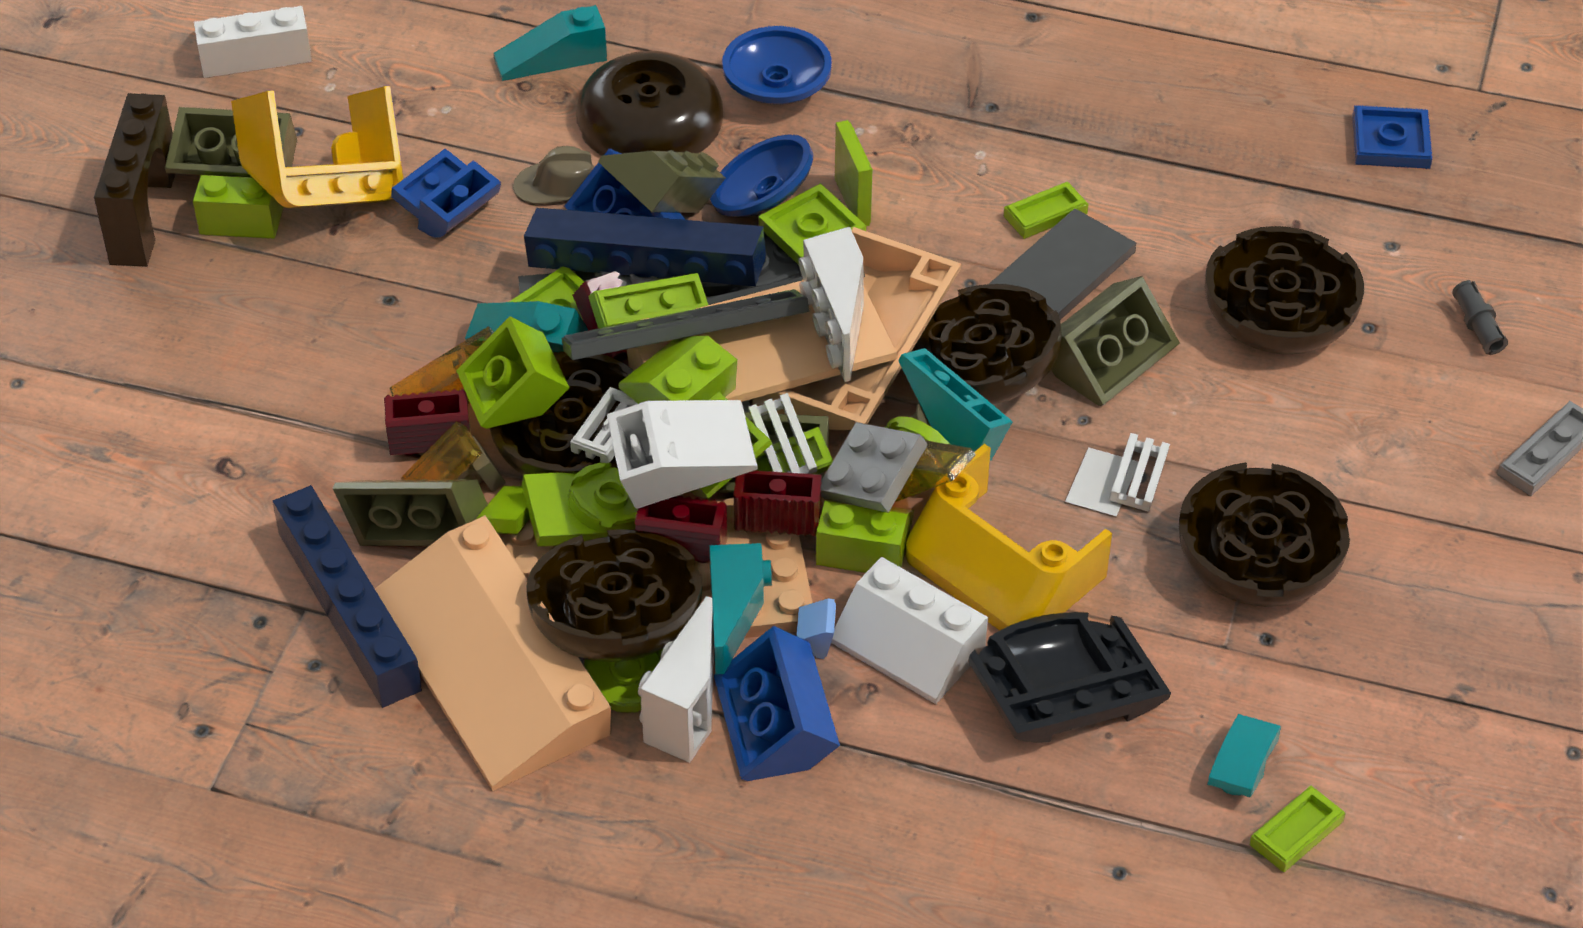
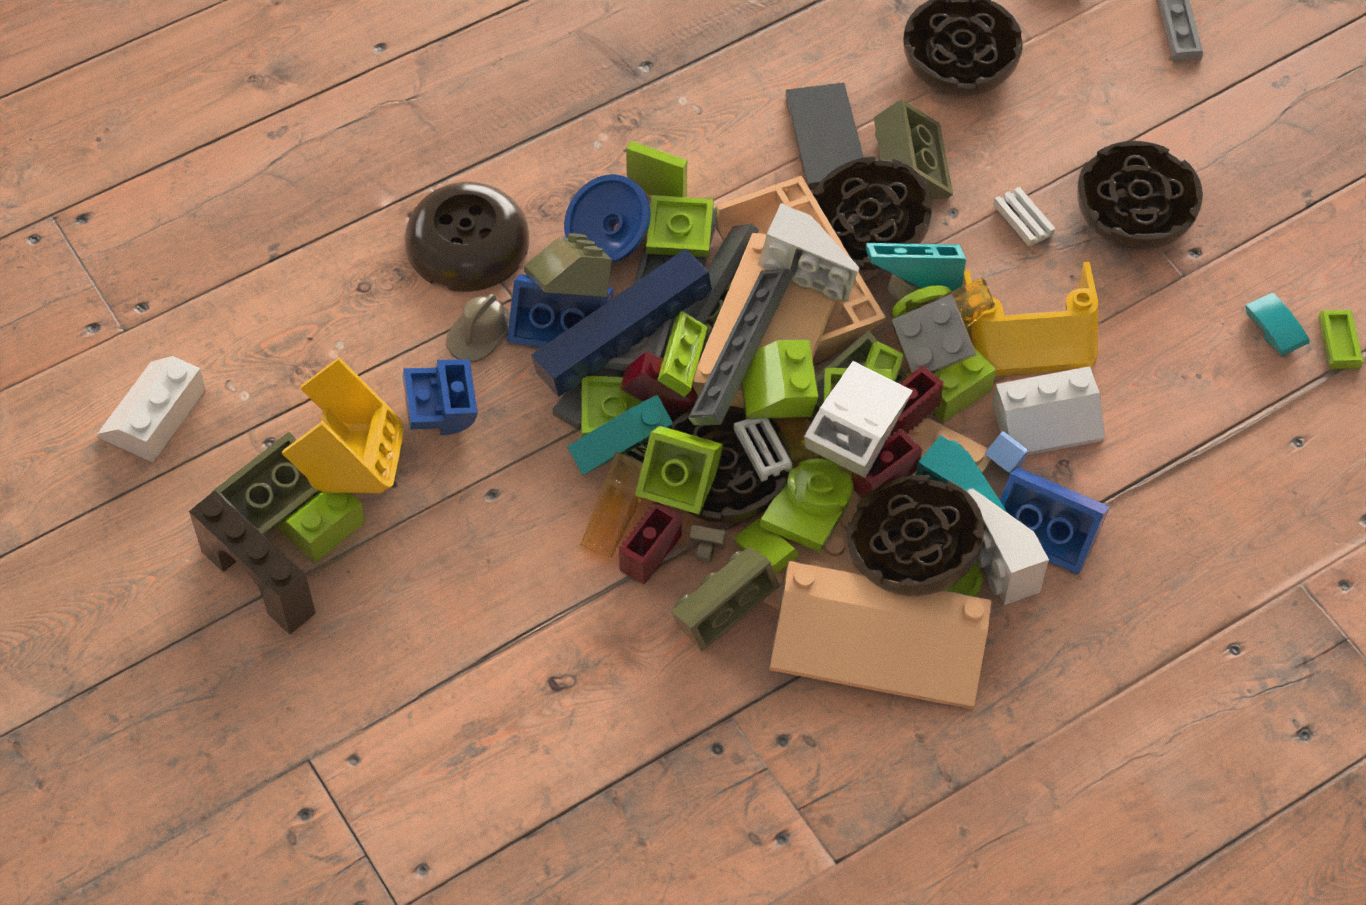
camera: 50 degrees left, 10 degrees up
(347, 596) = (753, 683): dark blue brick -> none
(447, 456) = (693, 557): clear yellow tile -> none
(559, 43) = (353, 244): teal slope -> none
(770, 407) = (872, 352): white tile -> none
(776, 64) = (511, 141): blue dish -> none
(1044, 209) = (767, 104): lime tile -> none
(1066, 674) = (1150, 361): black slope -> none
(1096, 479) = (1007, 242): white sticker -> none

